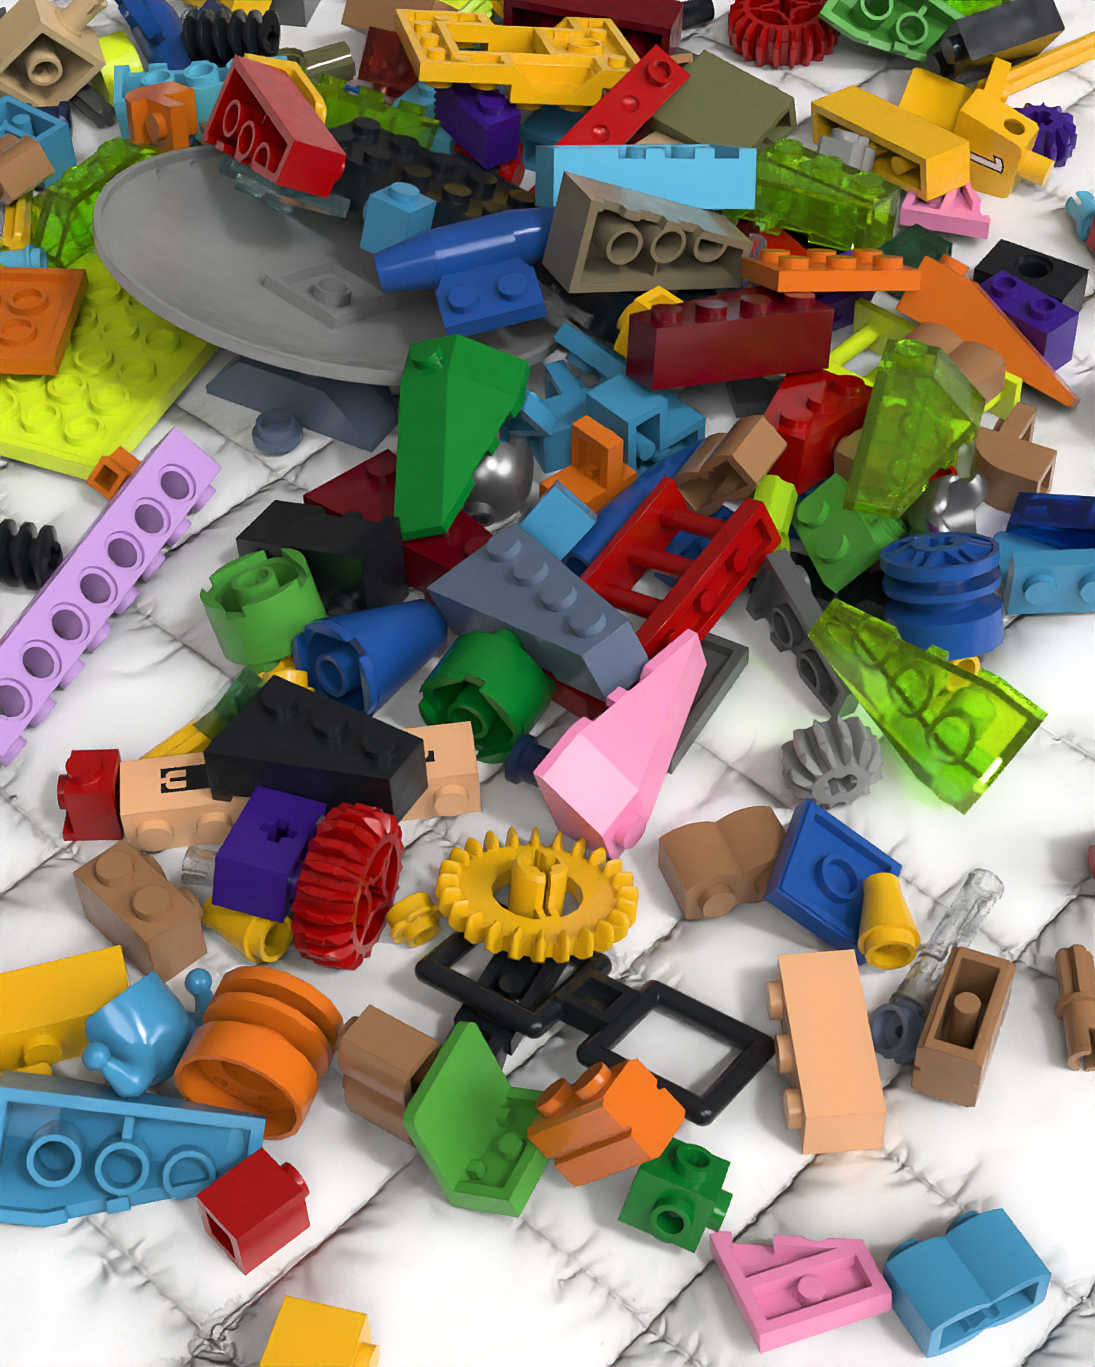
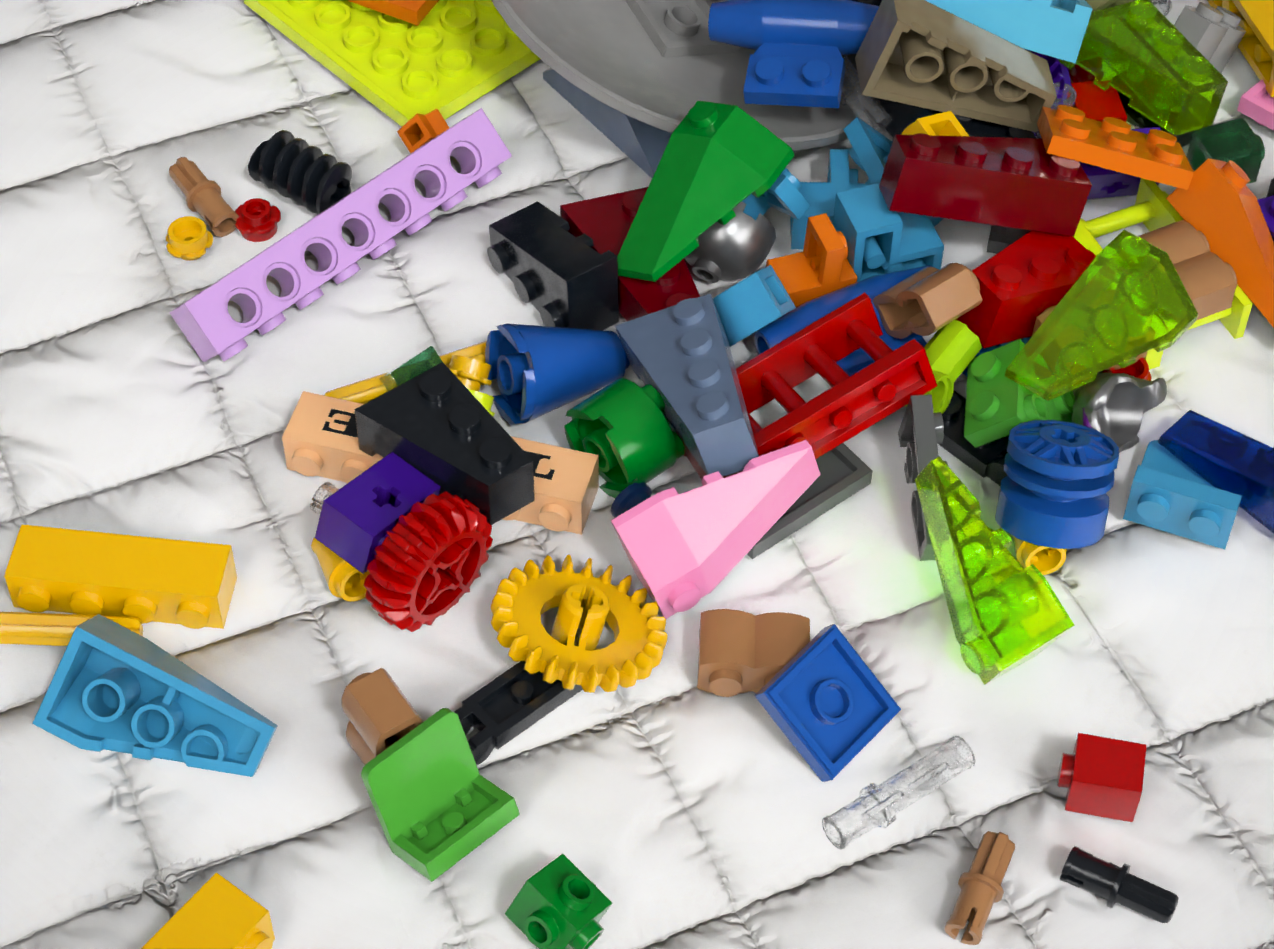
camera: 20 degrees right, 5 degrees up
(91, 795) = (270, 407): red brick -> none
(141, 910) = (265, 524): medium nougat brick -> none
(144, 1032) = (218, 626): dark azure piece -> none
(255, 1209) = (237, 796): red brick -> none
(261, 607) = (479, 292): bright green brick -> none
(261, 1048) = (293, 671): orange wheel -> none
(277, 431) = (579, 135): sand blue plate -> none
(414, 920) = (473, 608): yellow plate -> none
(604, 1121) = (522, 831): orange brick -> none
(607, 1014) = (584, 742): black bar -> none
(826, 1052) = (745, 843): light nougat brick -> none
(832, 761) = (882, 598): light grey gear -> none
(886, 925) = (850, 756): yellow cone -> none
(897, 1030) = (815, 849): sand blue plate -> none
(963, 1026) = (865, 865): medium nougat brick -> none
(1012, 460) = (1203, 376): medium nougat brick -> none

